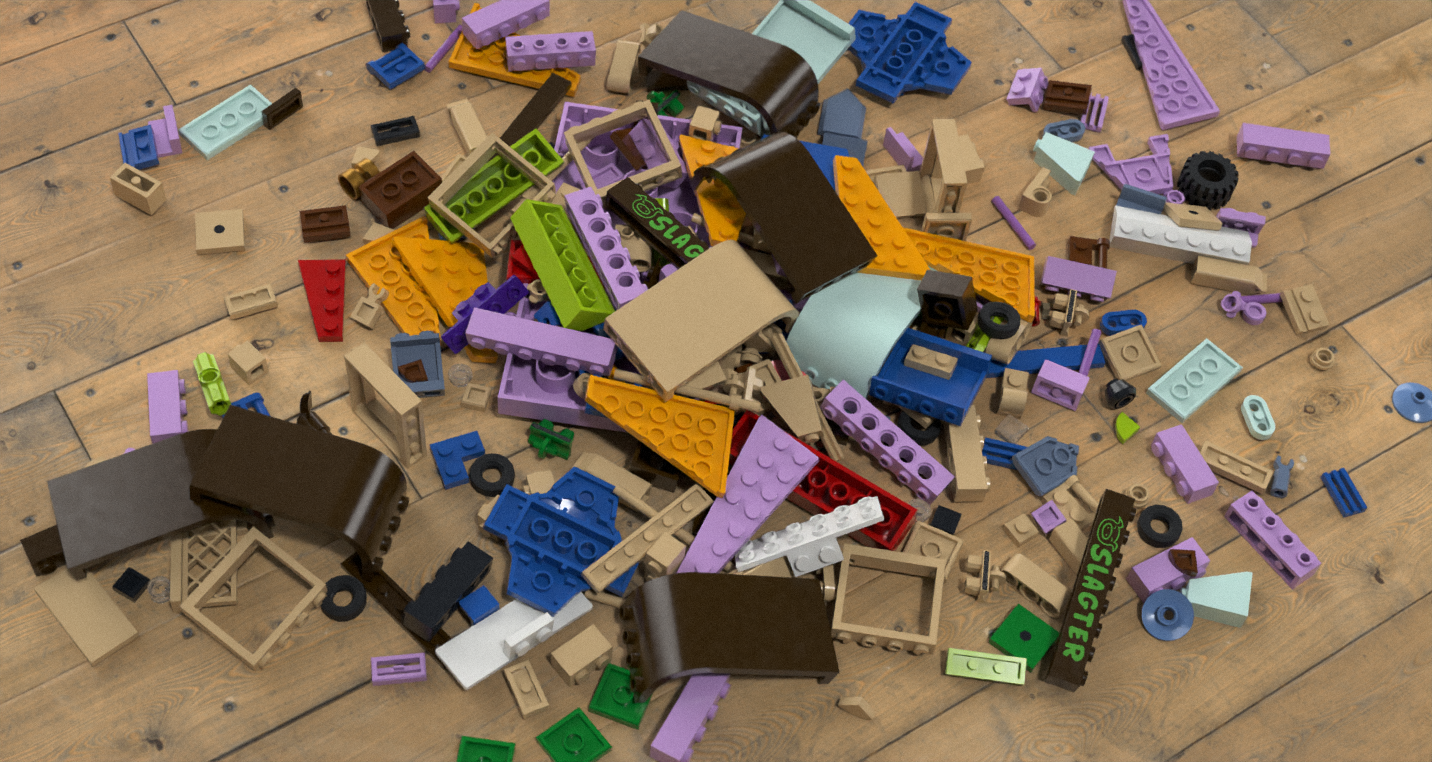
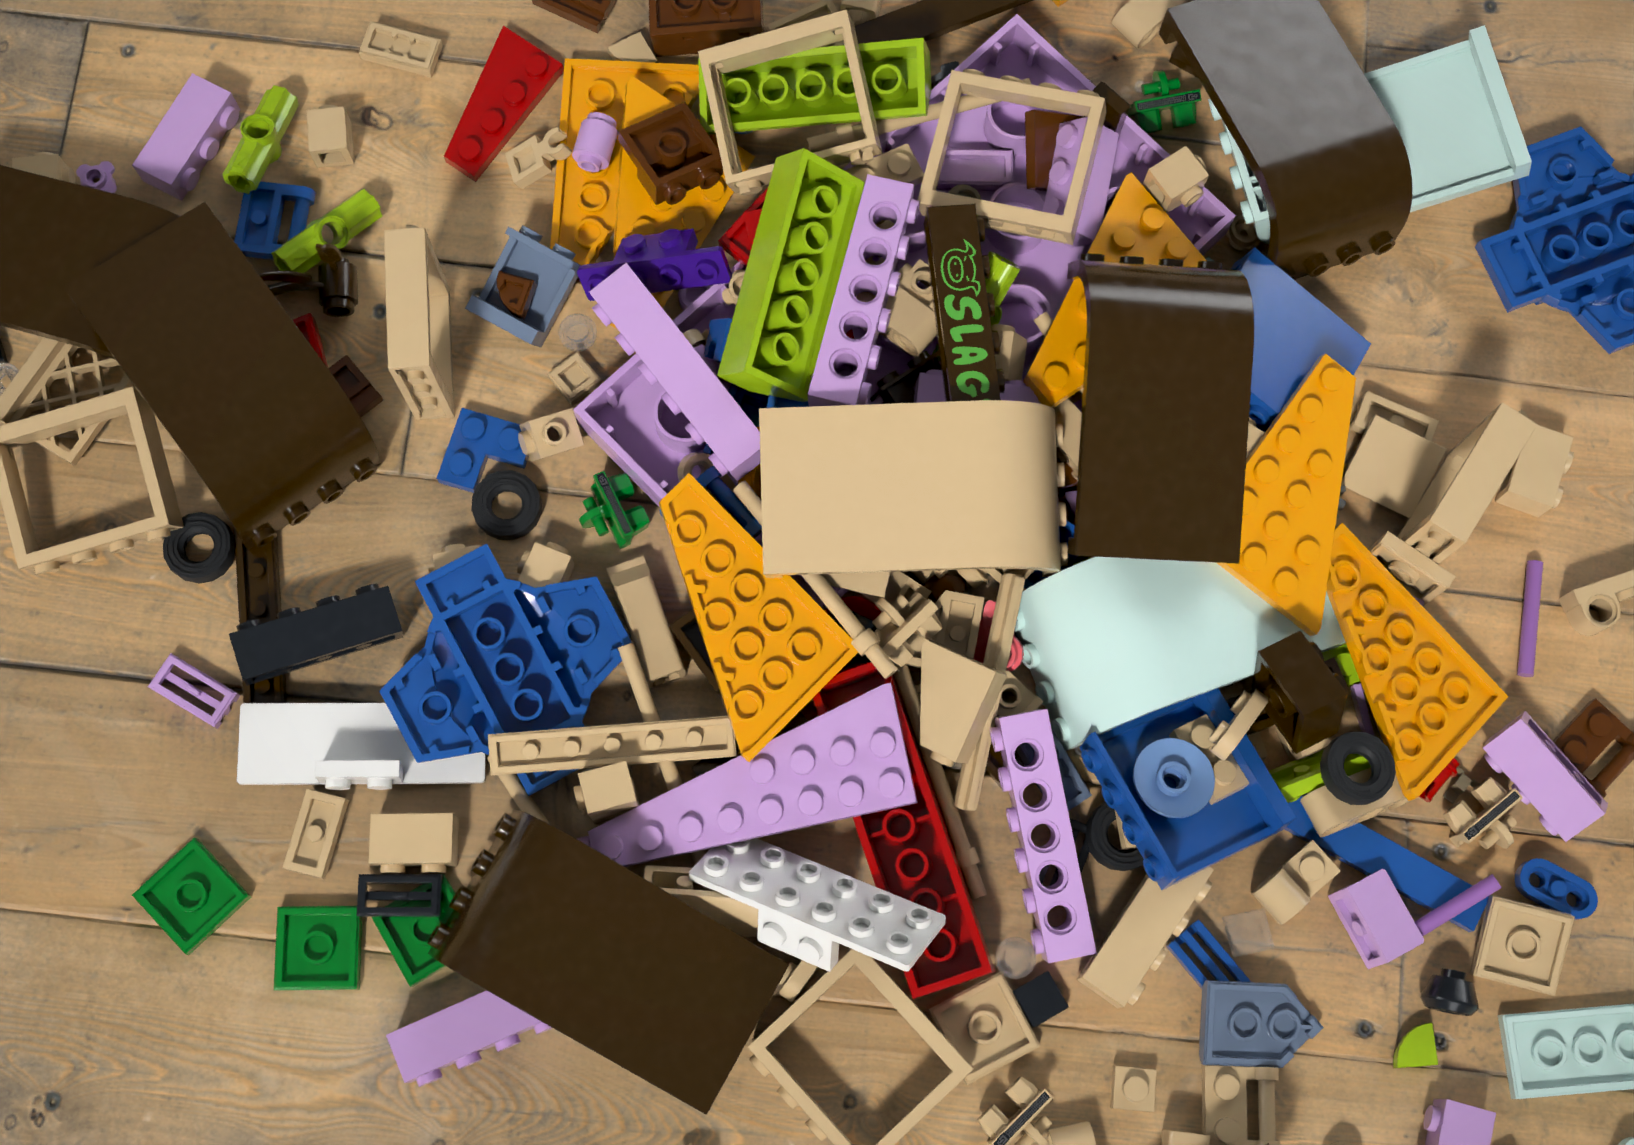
camera: 40 degrees right, 20 degrees up
(289, 400) = (344, 221): none -> lime piece
(398, 278) = (595, 142): none -> lavender brick
(447, 257) = (672, 154): none -> reddish brown plate
(479, 605) = (342, 681): blue panel -> none
(486, 428) = (550, 435): none -> tan brick
(586, 704) = (435, 896): none -> black tile
(842, 115) = (1418, 282): sand blue tile -> none
(855, 146) = (1388, 337): sand blue panel -> none
(902, 150) = (1459, 397): lavender panel -> none
(924, 374) = (1182, 763): none -> medium blue dish
(933, 332) = (1229, 735): none -> tan plate
(1048, 517) = (1184, 1102): lavender plate -> none

